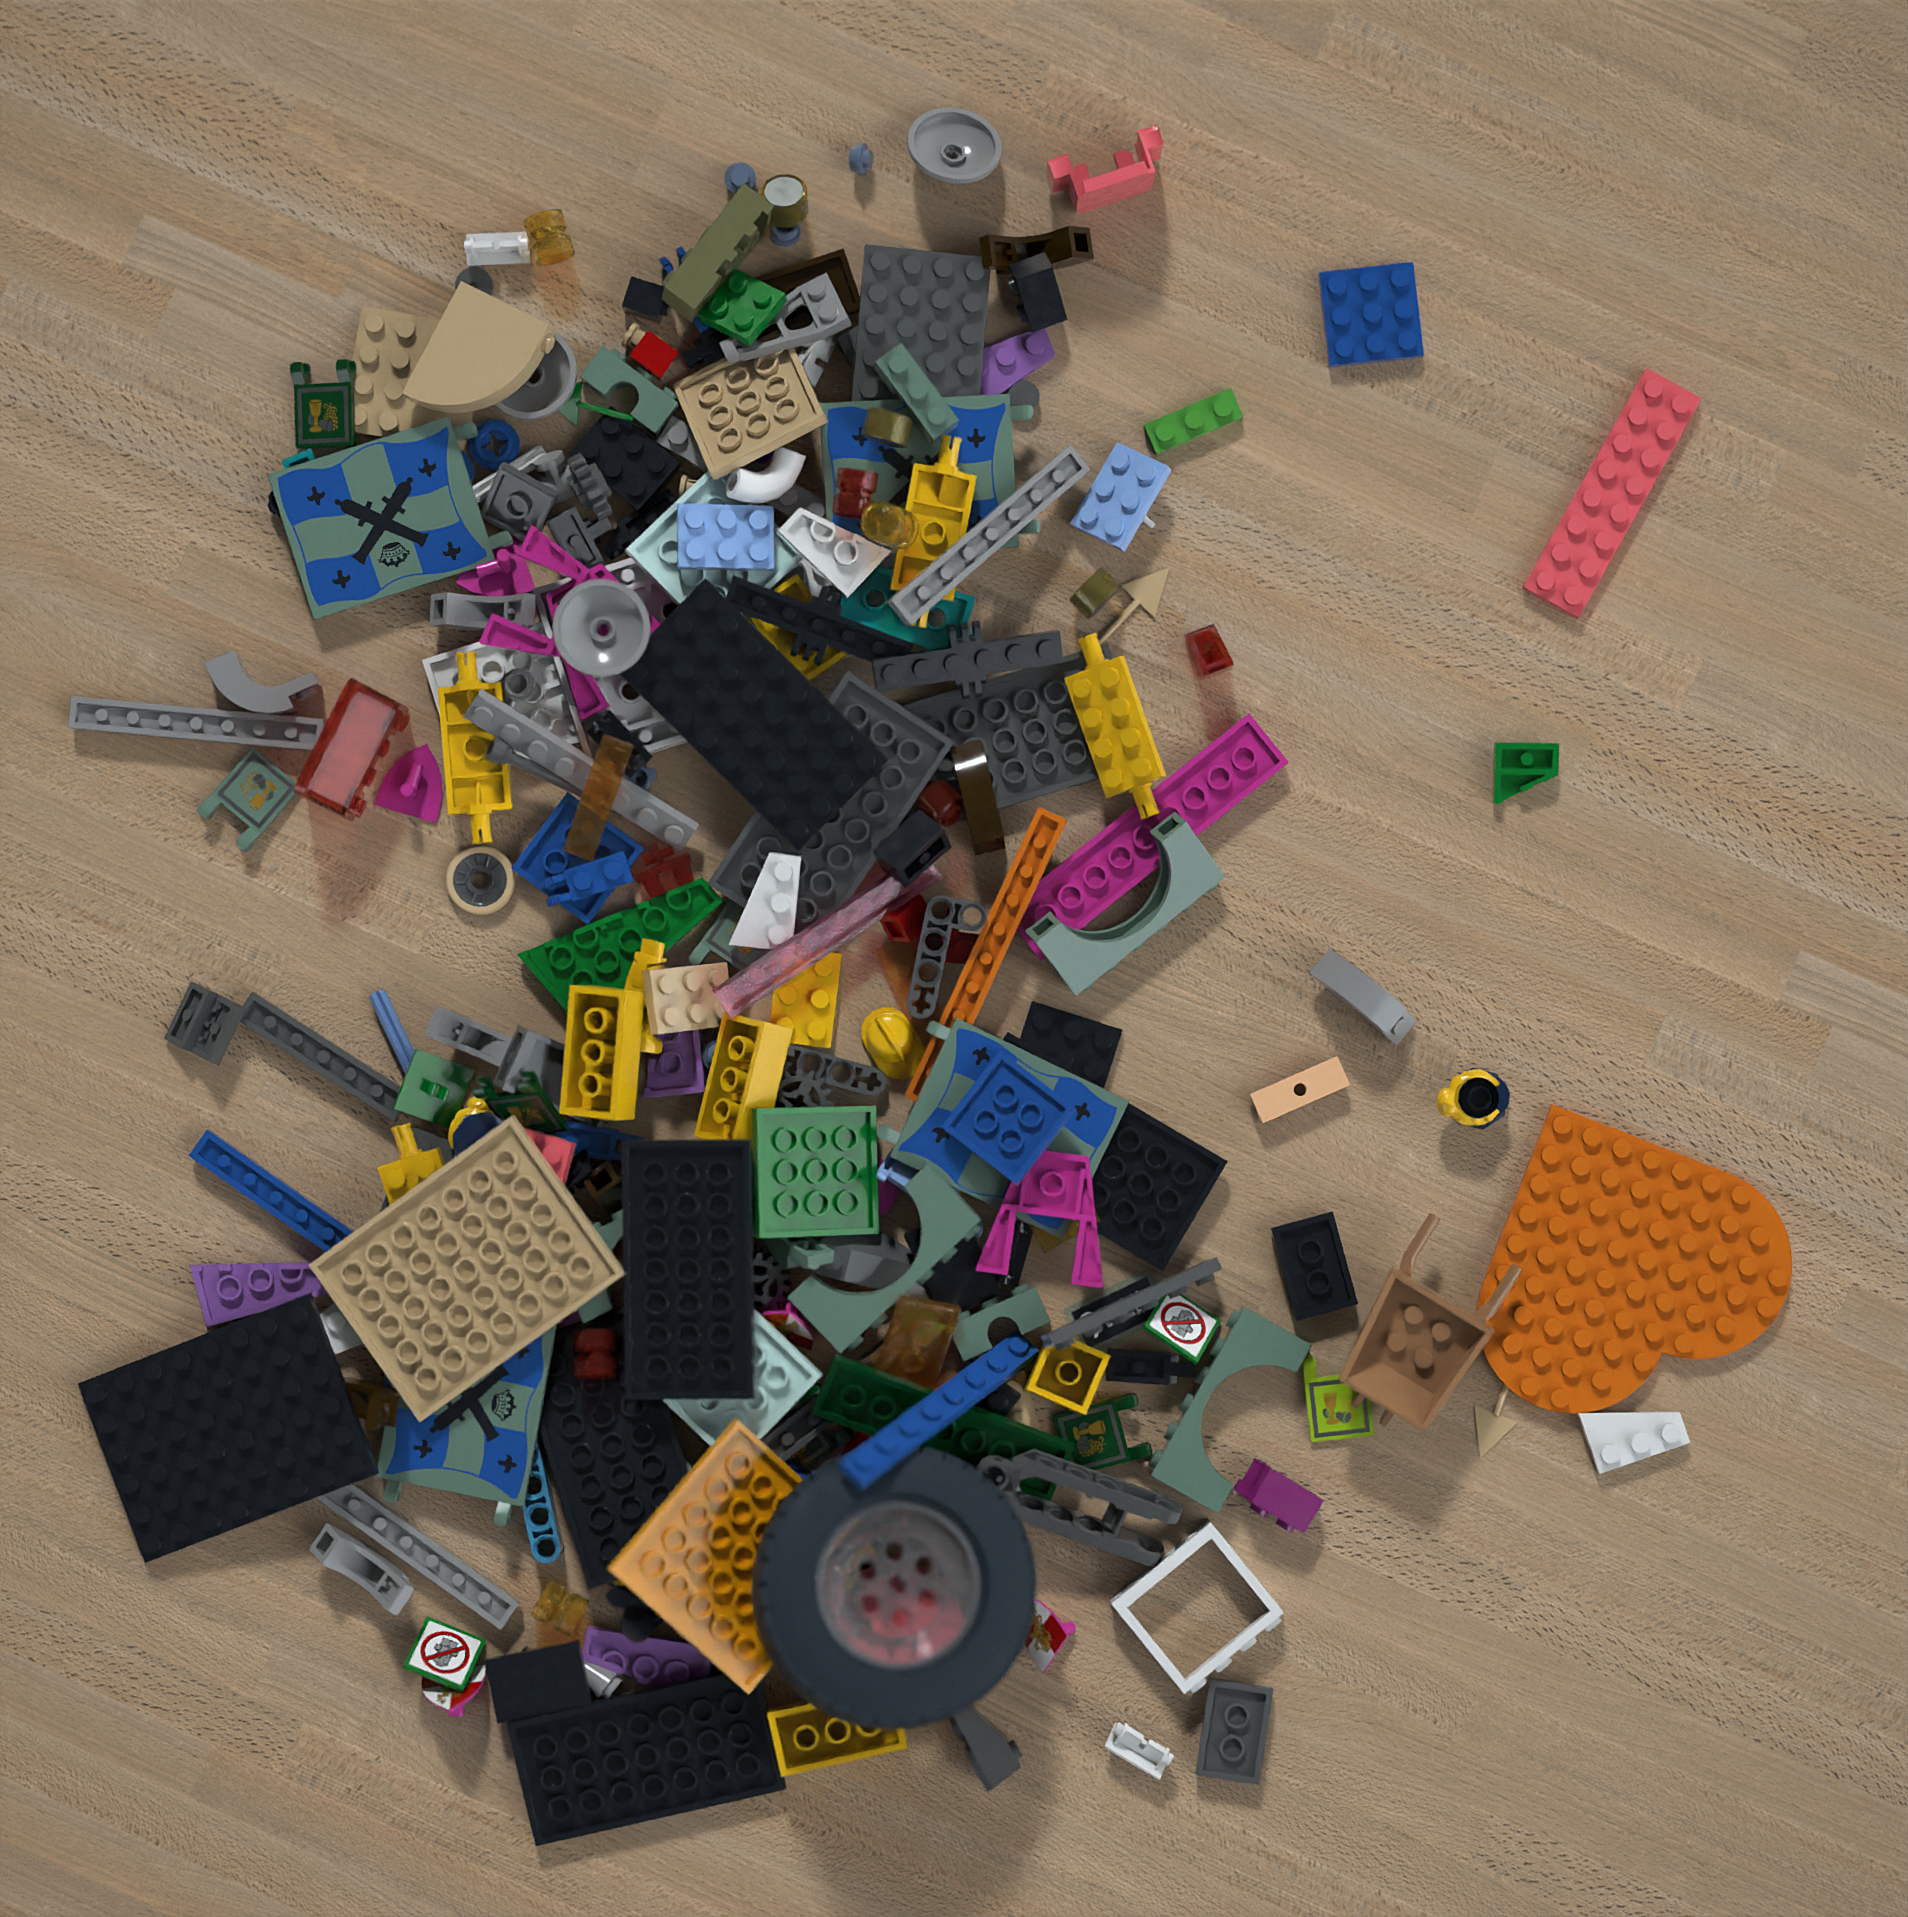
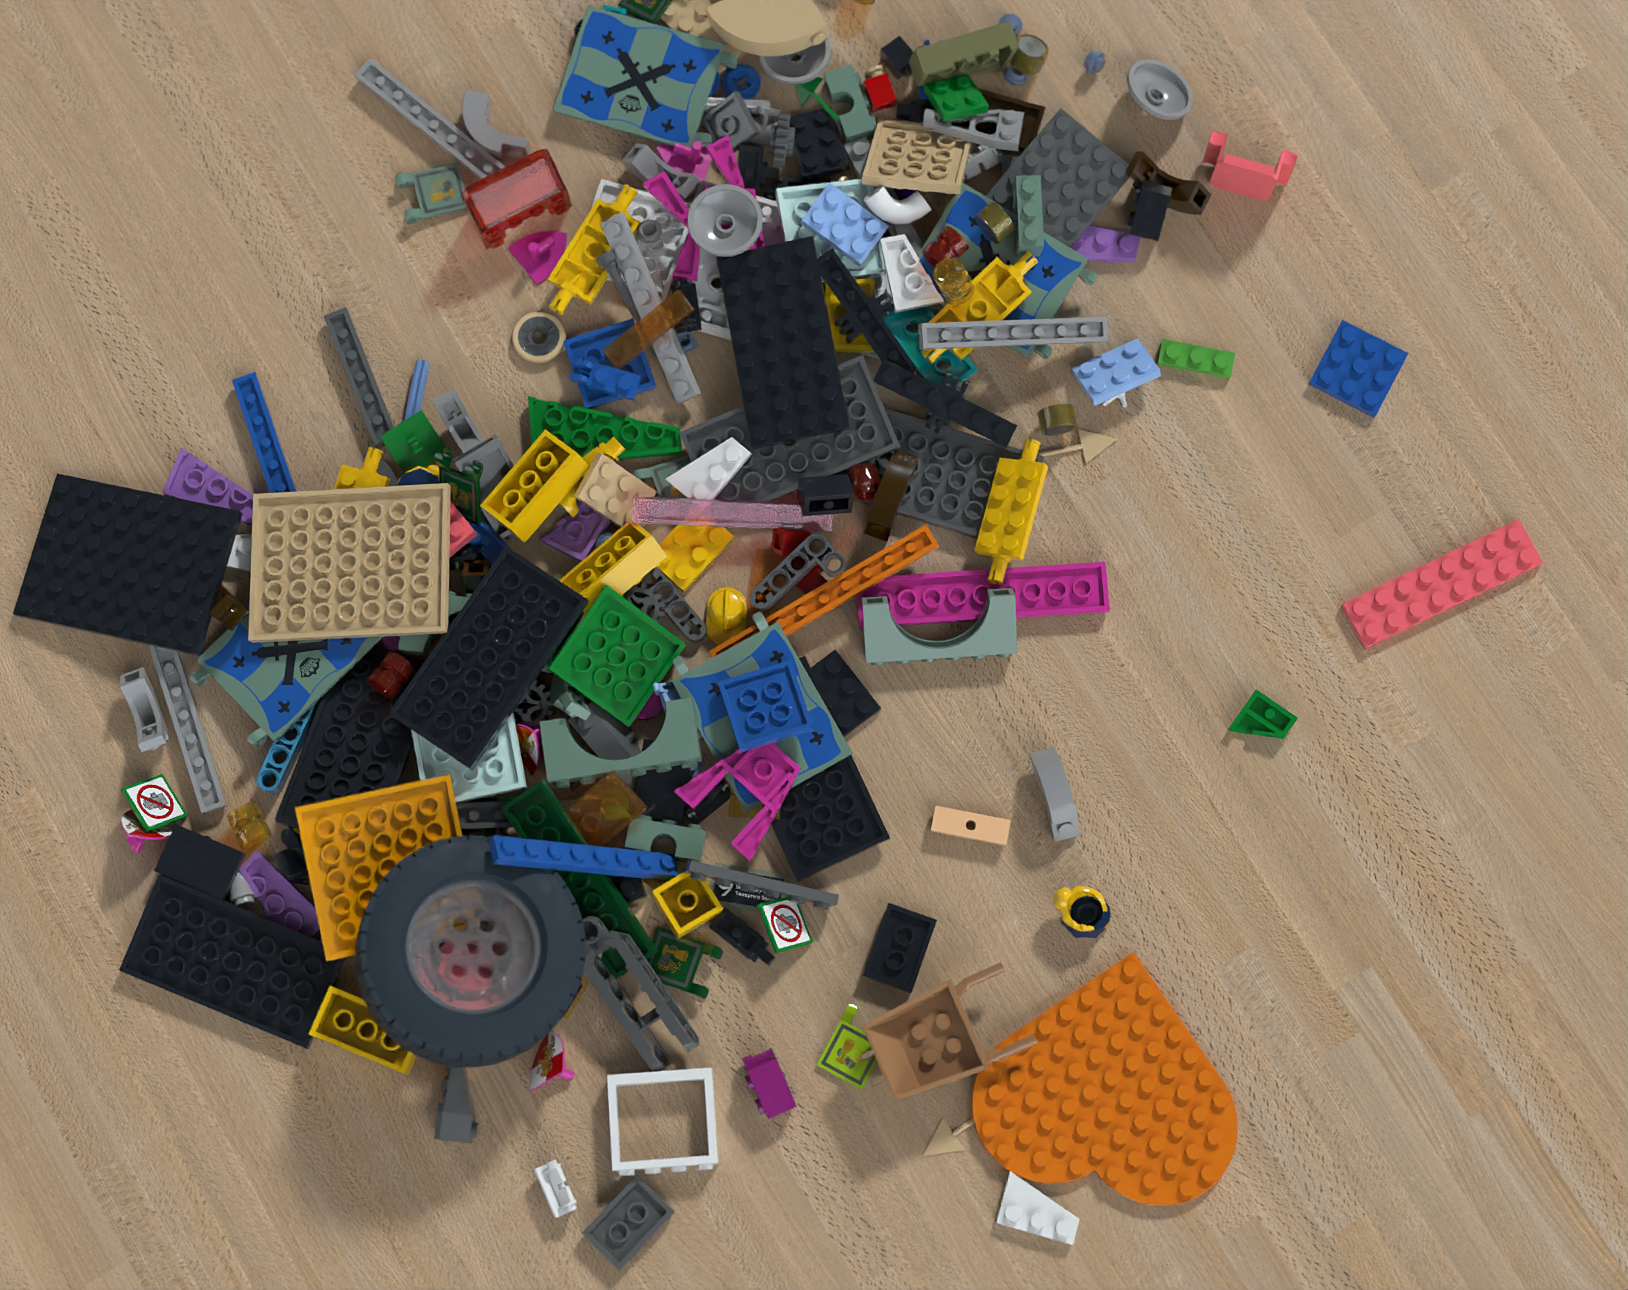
camera: 35 degrees right, 10 degrees down
(205, 1023) = (303, 307): dark grey slope -> none
(678, 866) = (659, 403): clear red hips -> none
(1024, 394) = (1101, 269): dark grey tile -> none
(1183, 1458) = (820, 968): sand green arch -> none
(1208, 652) = (1105, 508): clear red slope -> none

